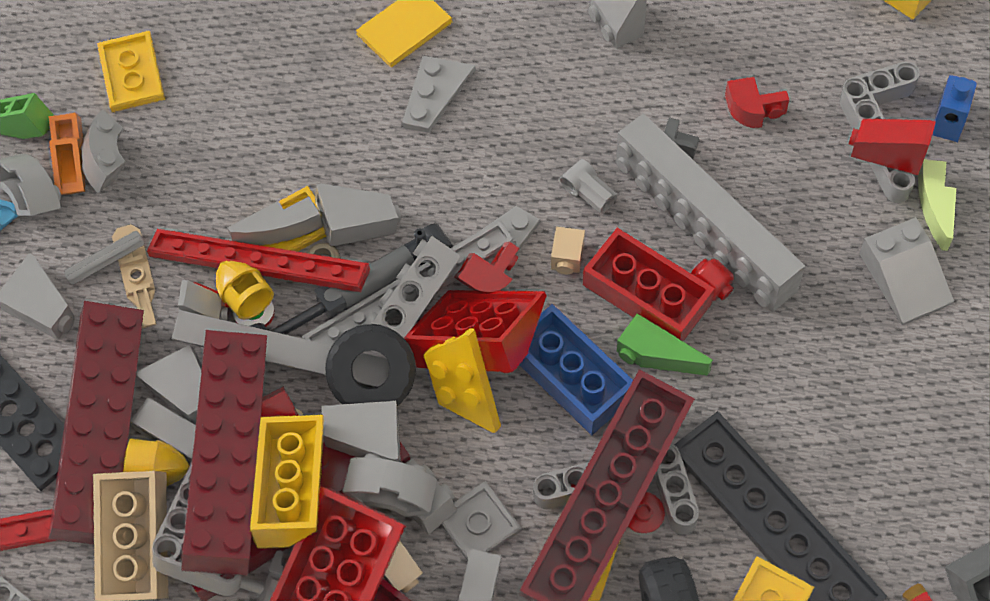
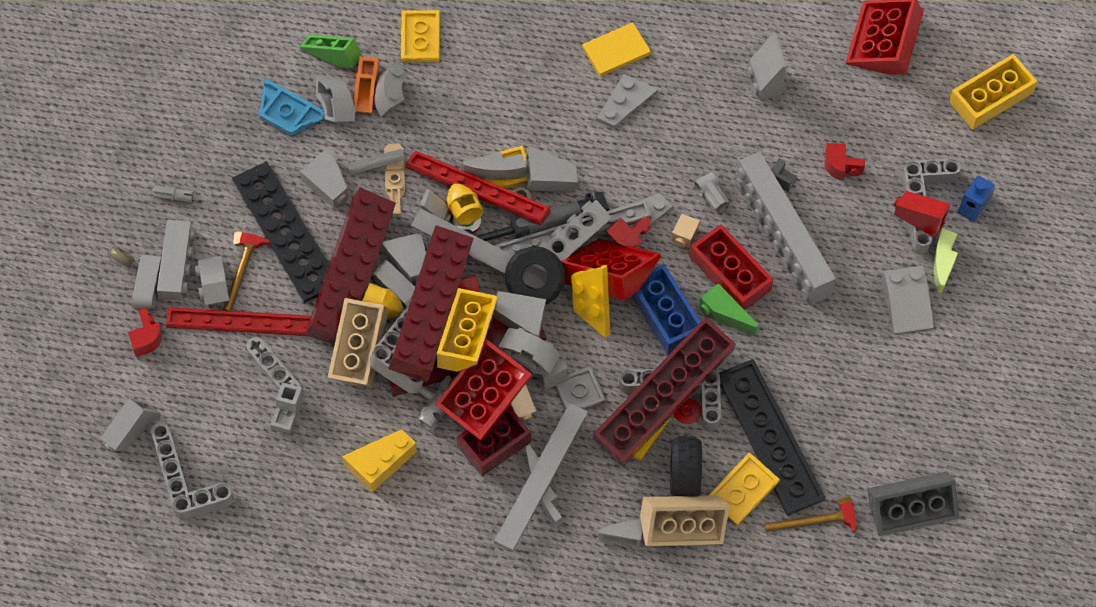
camera: 10 degrees right, 0 degrees up
(715, 275) = (778, 272): red head -> none

